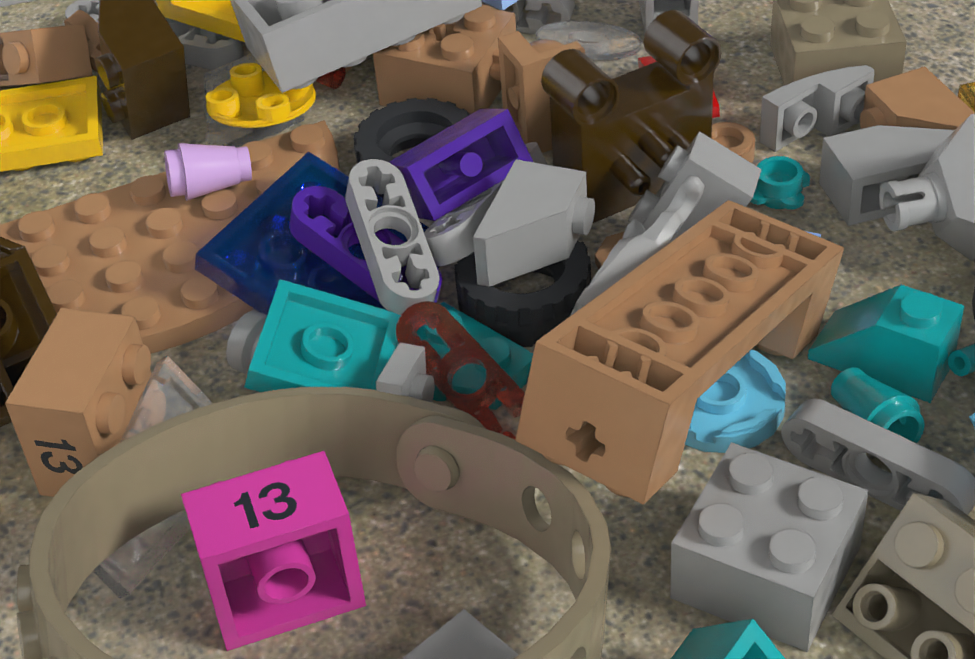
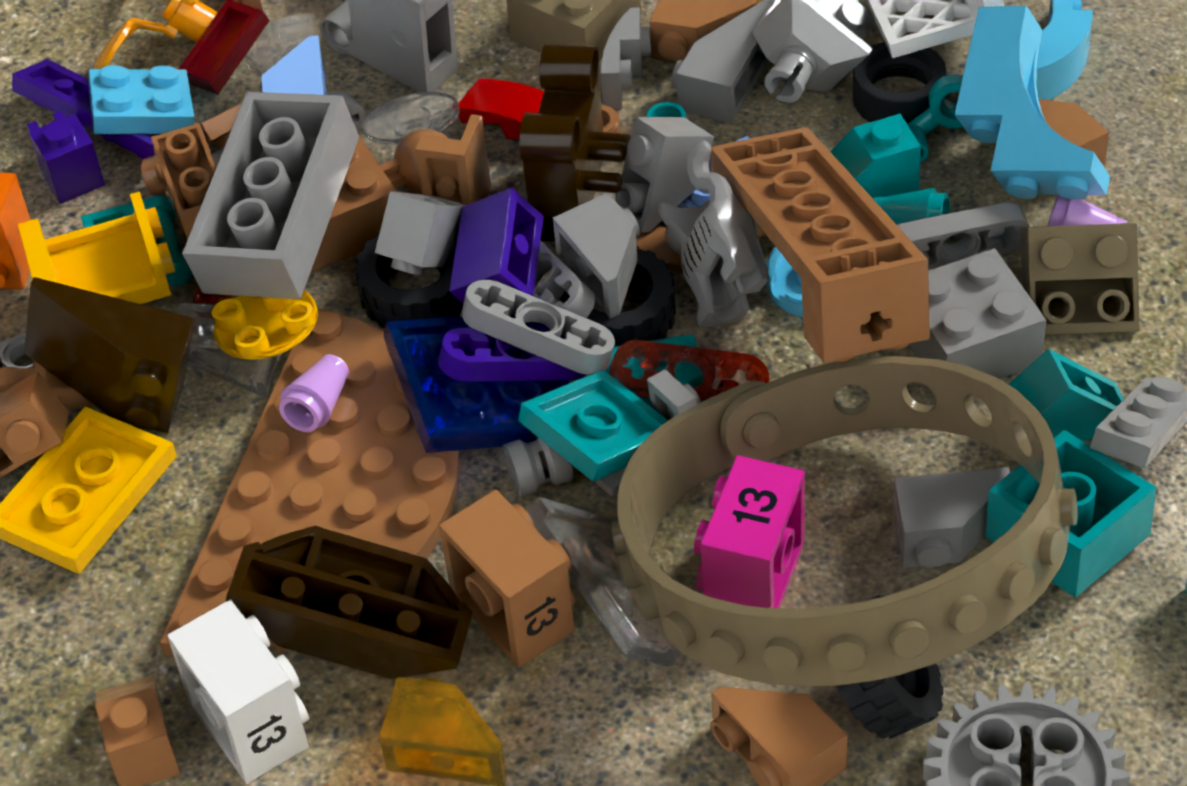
camera: 50 degrees left, 5 degrees up
(428, 98) = (418, 231): none -> light grey slope

